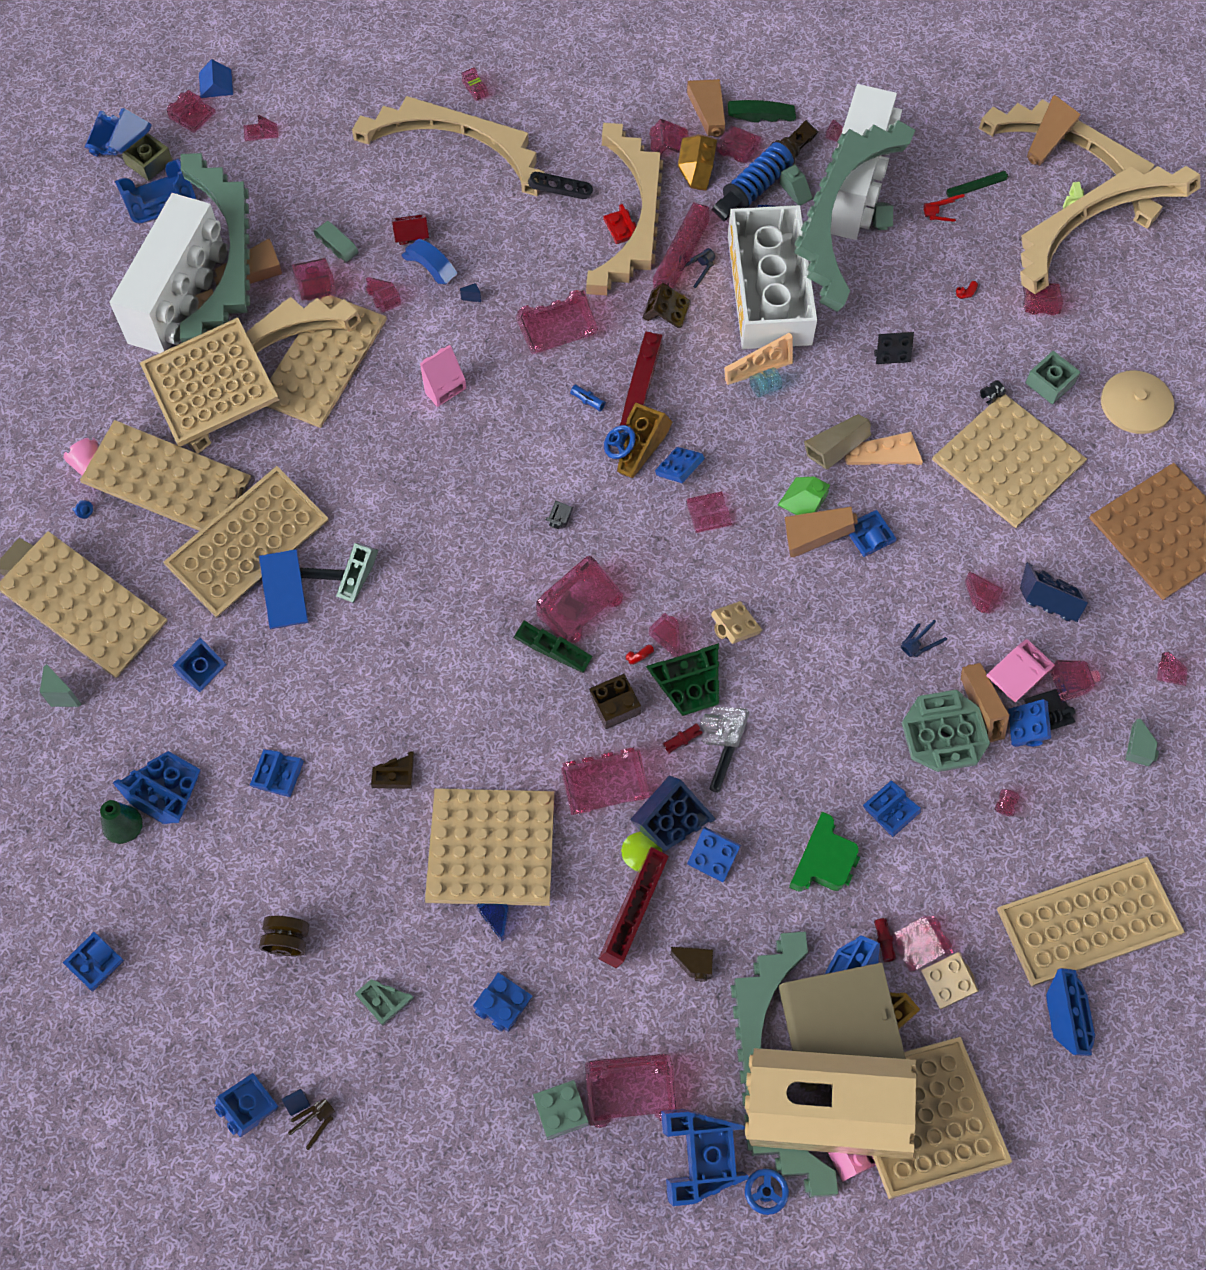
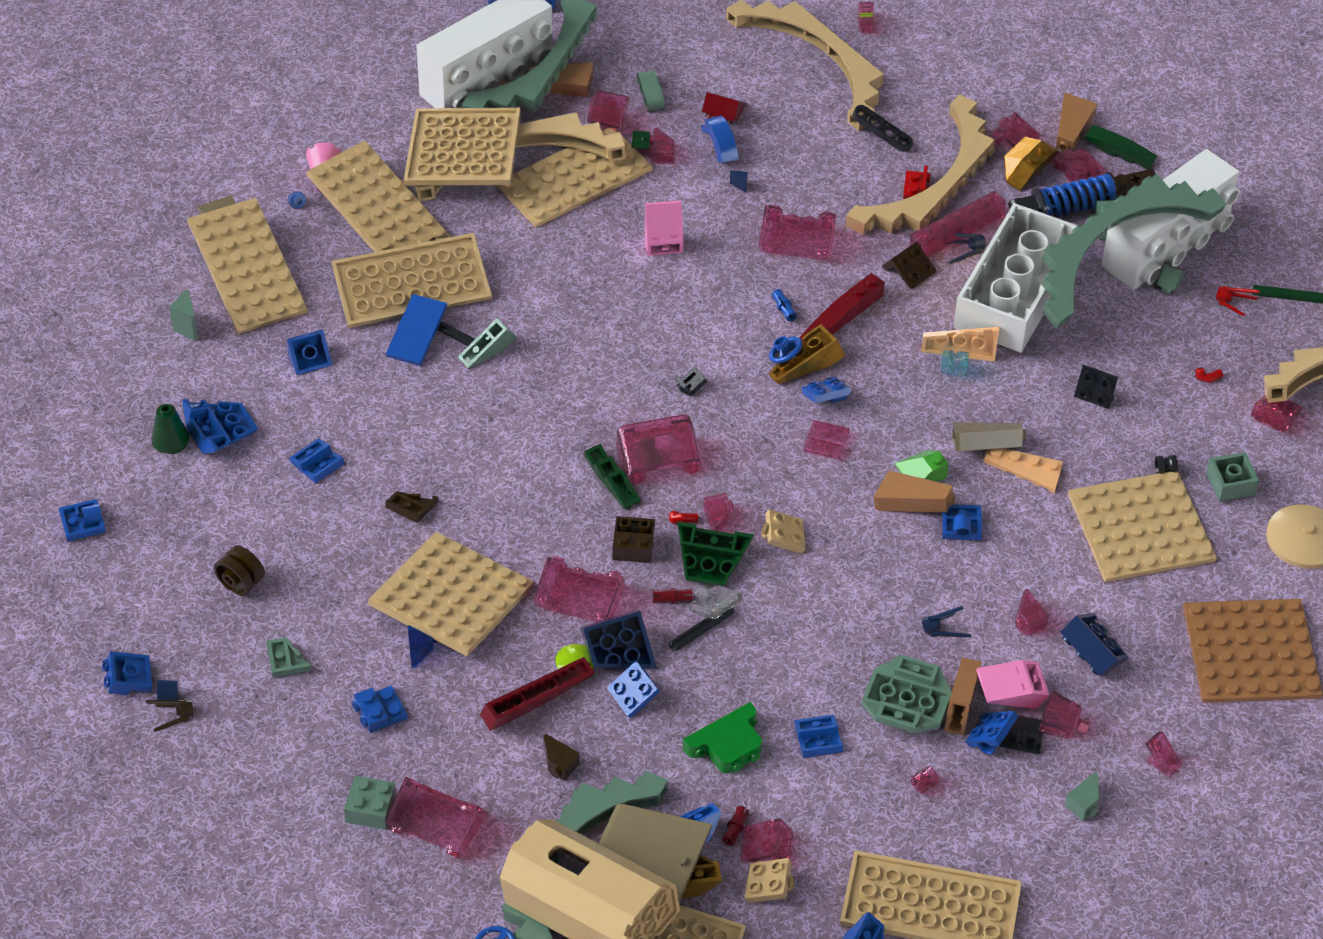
camera: 30 degrees right, 15 degrees down
(360, 295) = (641, 140): none -> dark green bracket
(709, 1155) = (464, 889): blue wedge -> none

